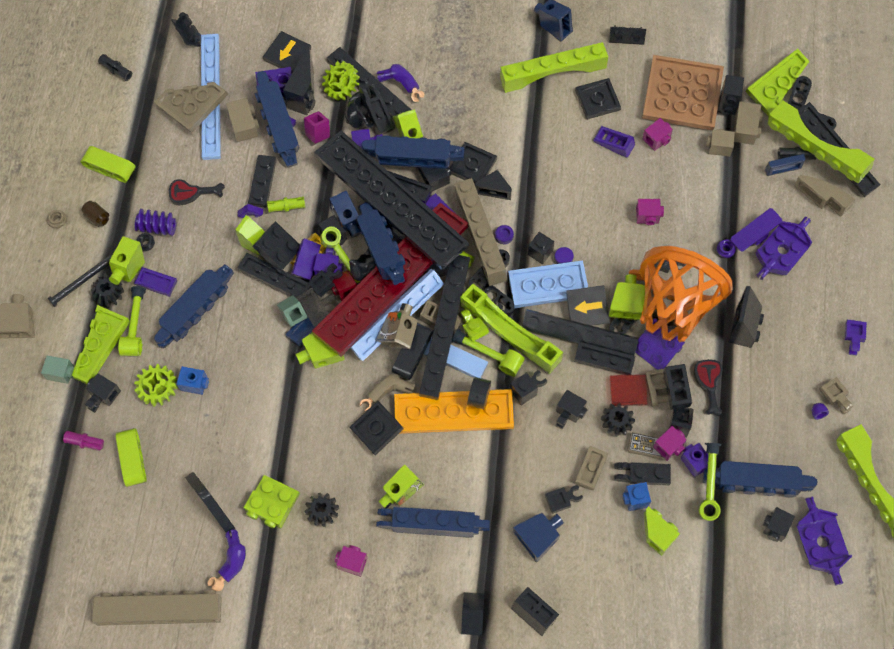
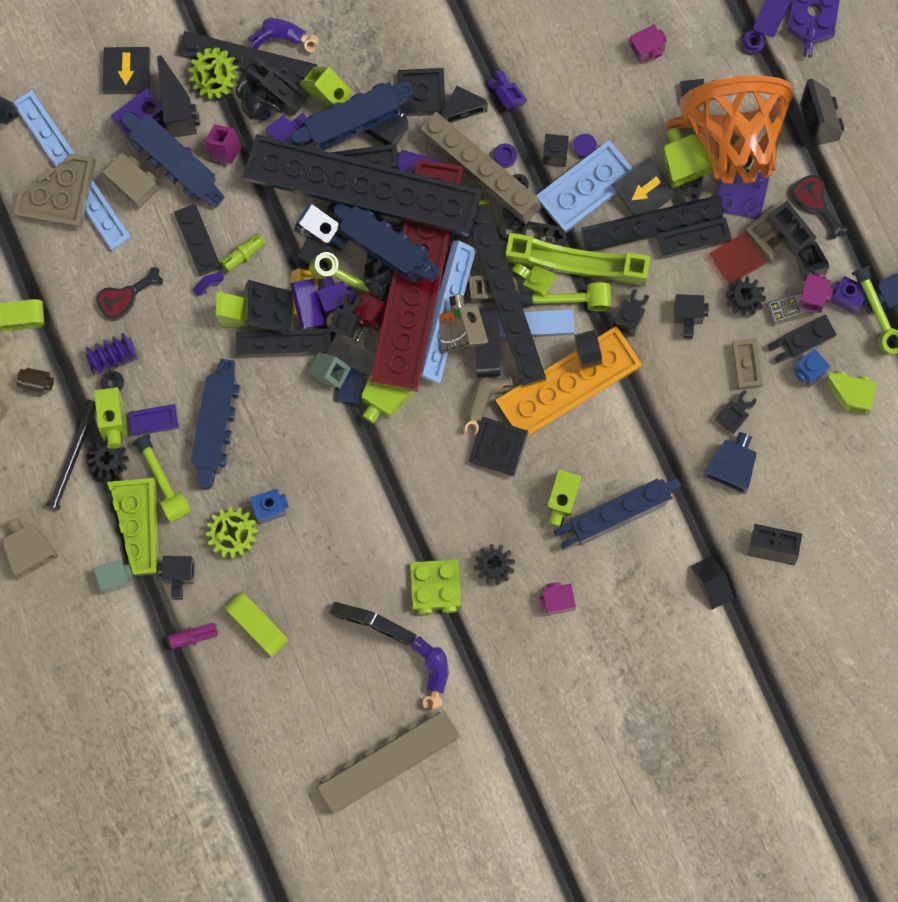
camera: 25 degrees left, 10 degrees up
(531, 195) = (507, 92): none -> dark purple plate

